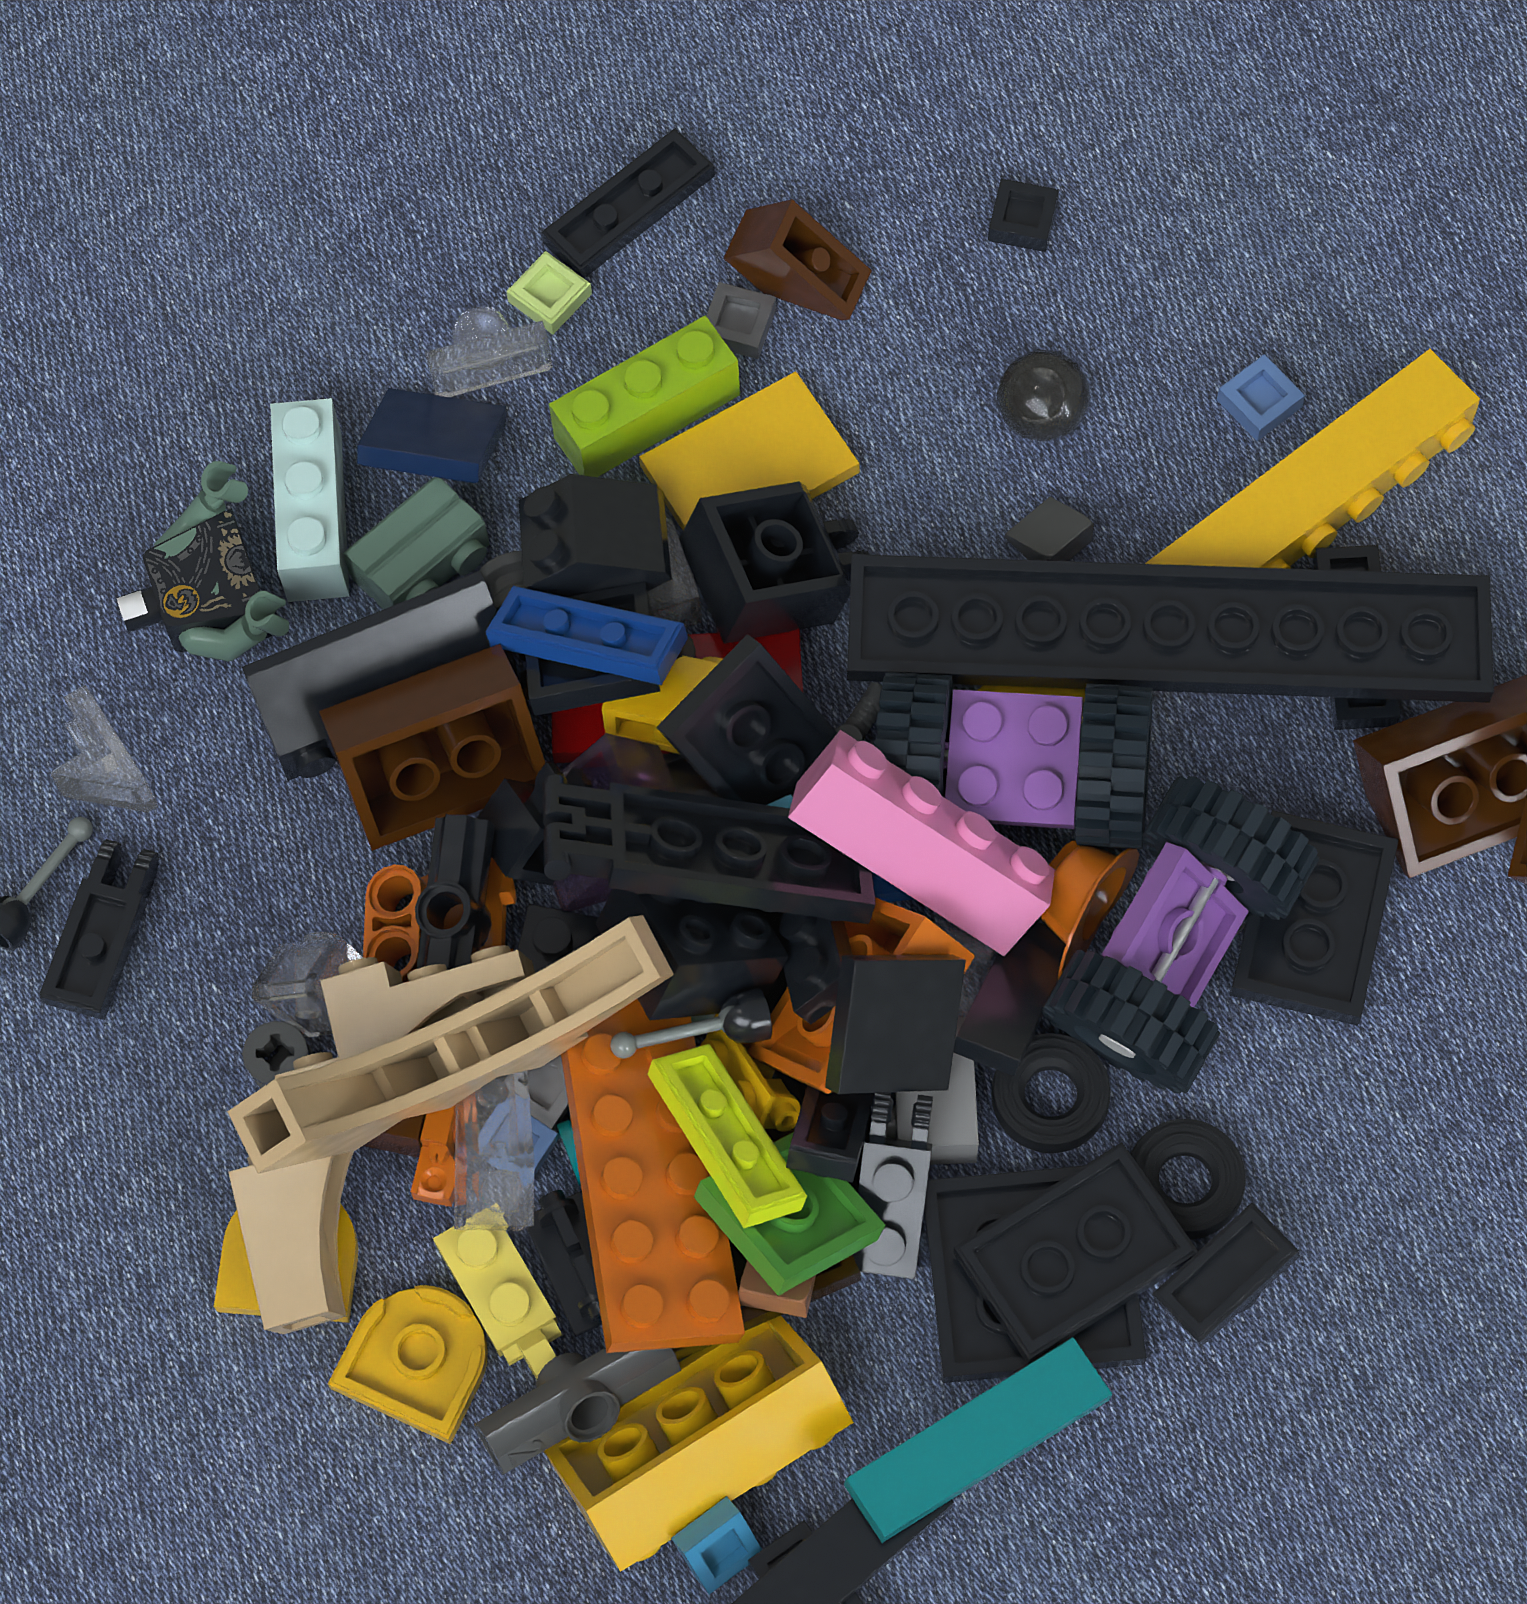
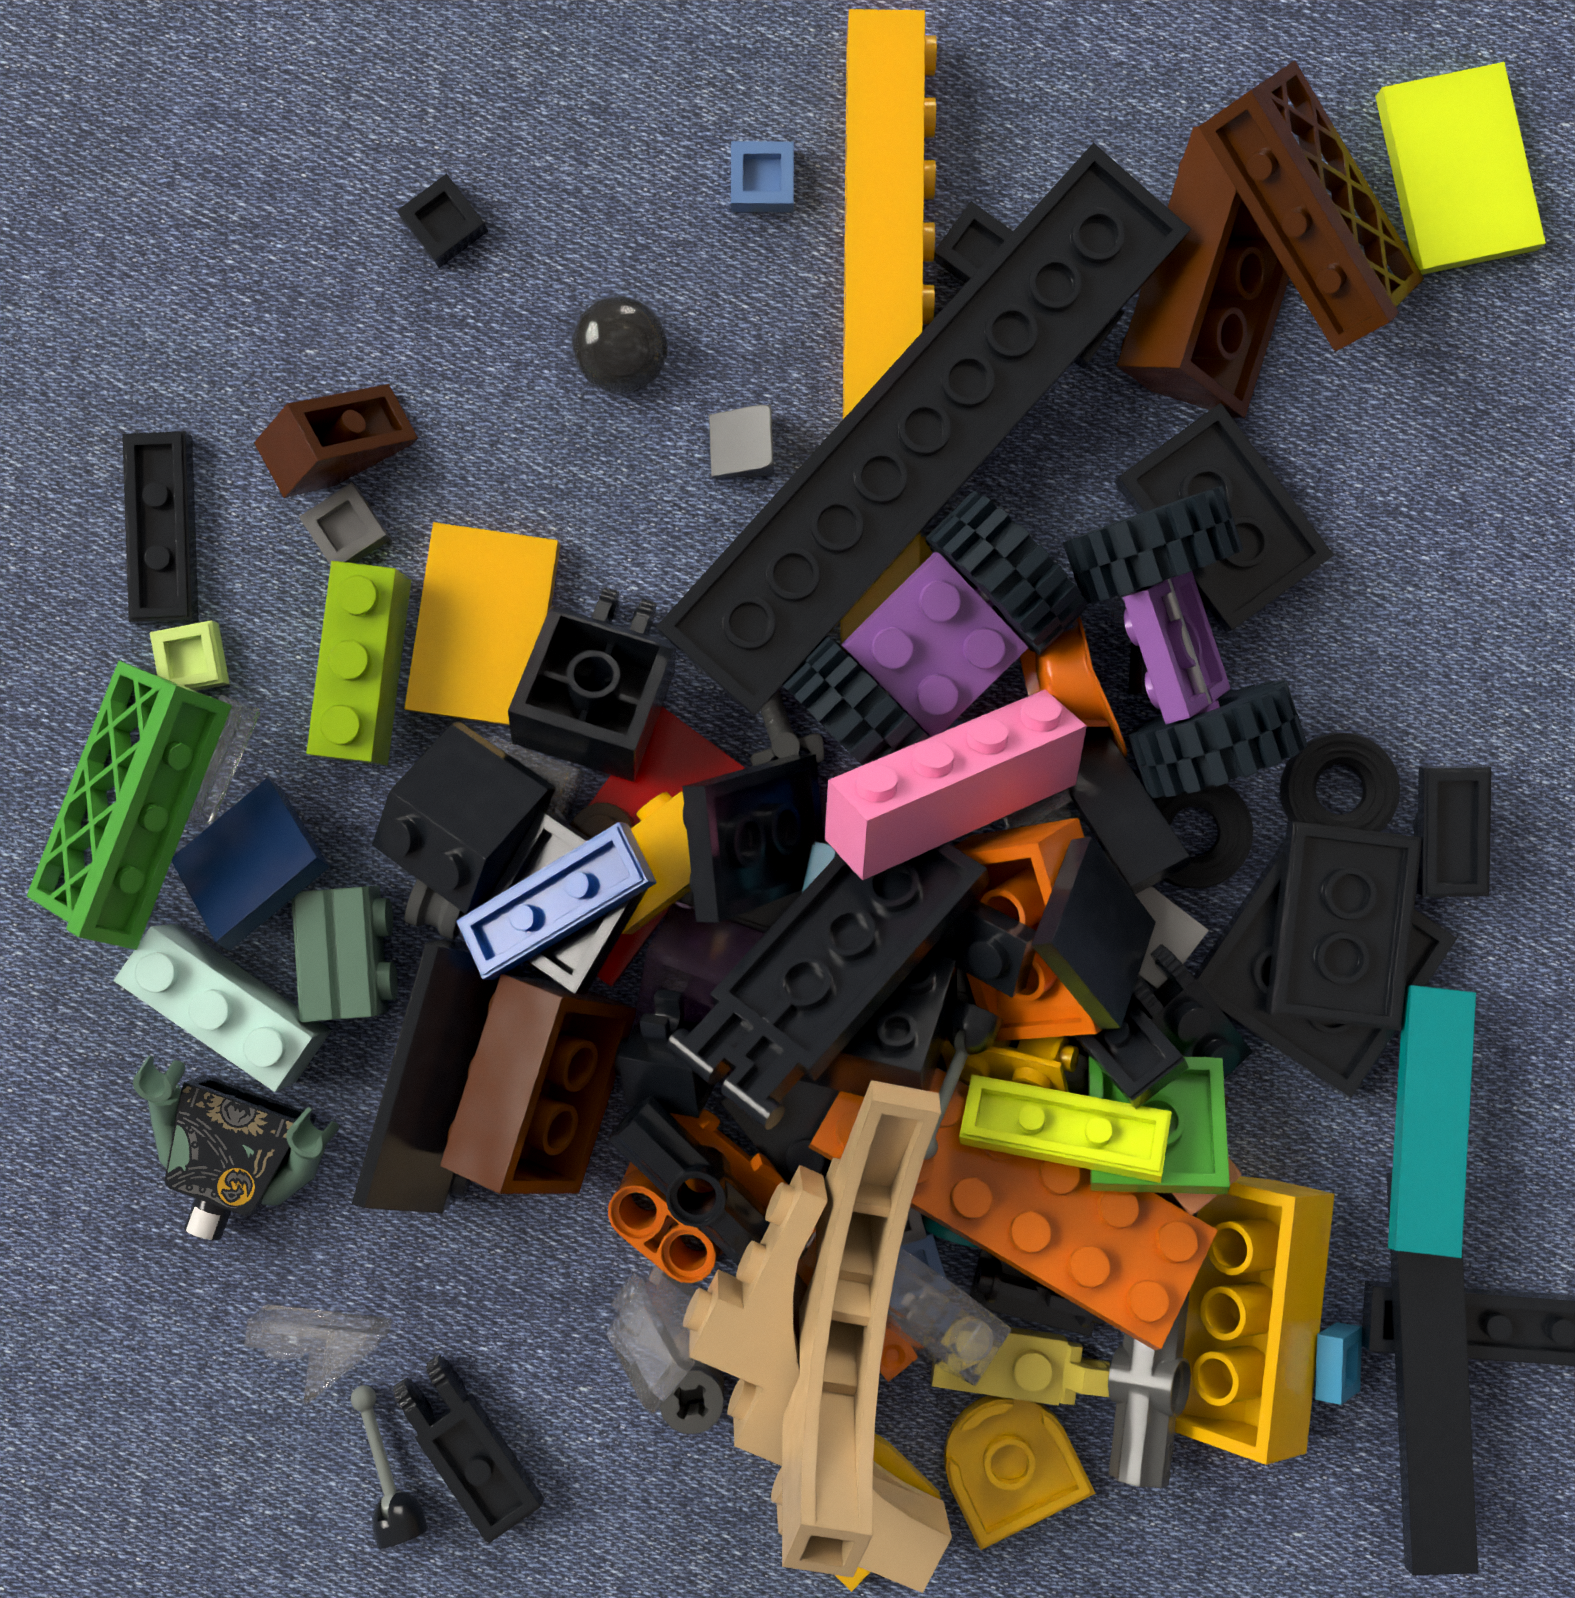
camera: 55 degrees left, 20 degrees up
(409, 323) = (141, 829): none -> bright green fence

